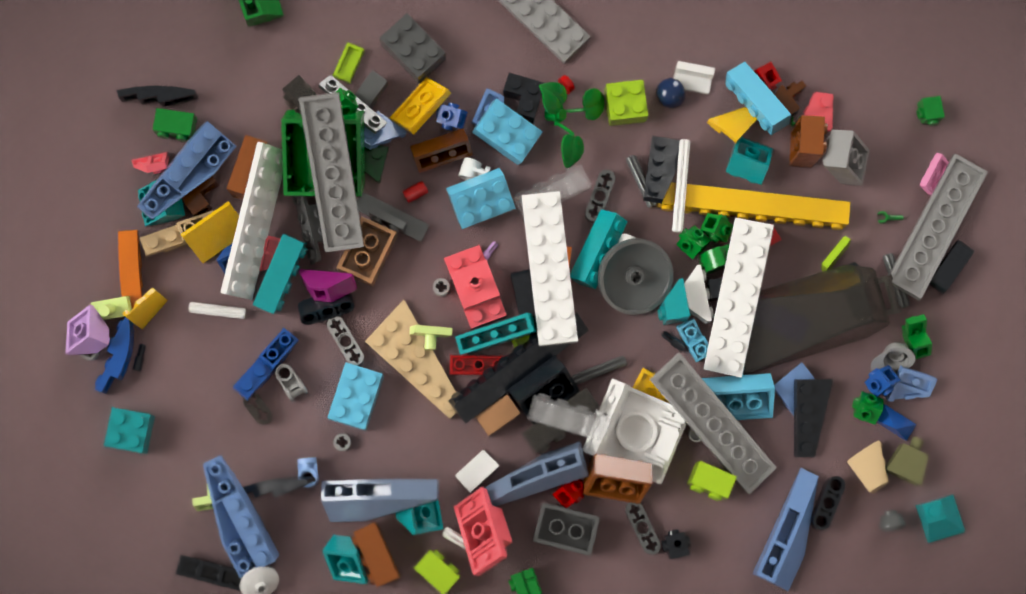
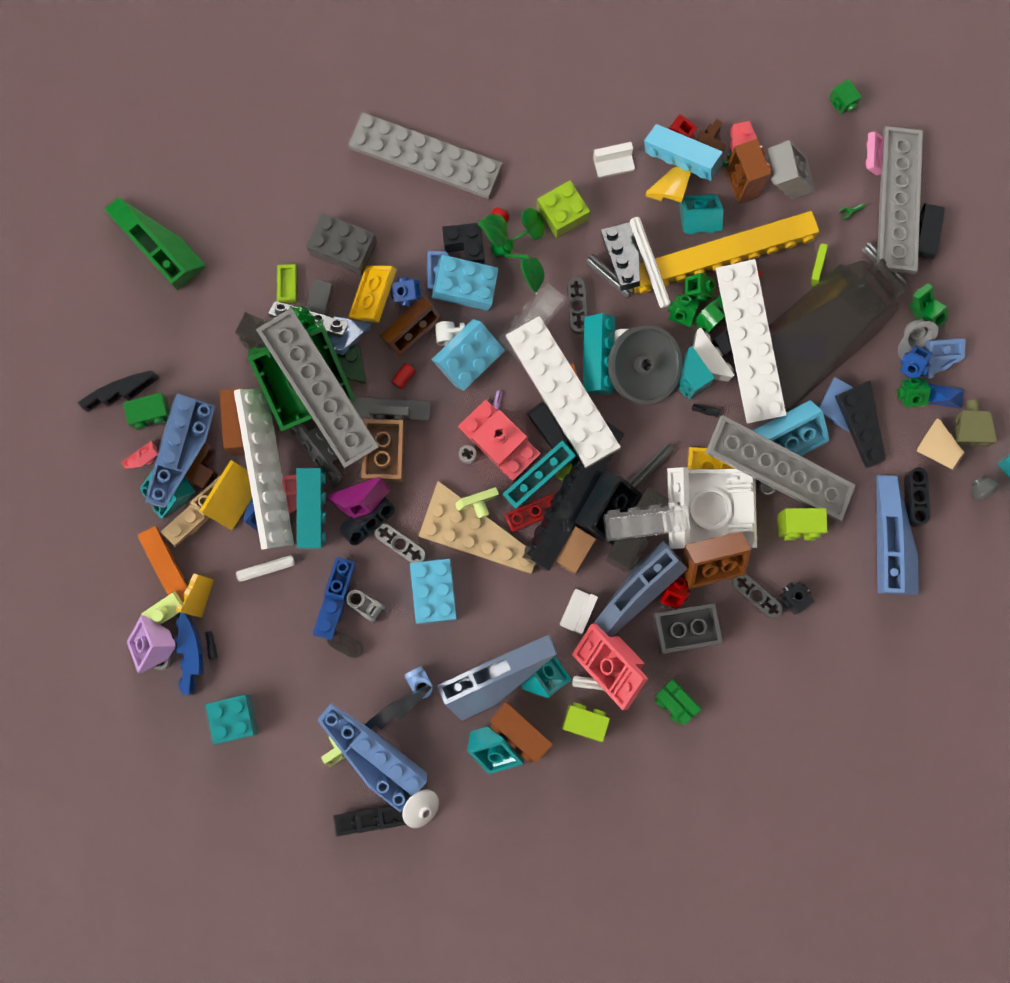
camera: 15 degrees left, 0 degrees up
(337, 446) = (437, 646): light grey bush -> none
(670, 93) = (600, 183): dark blue hair -> none
(693, 339) = (724, 400): medium azure slope -> none

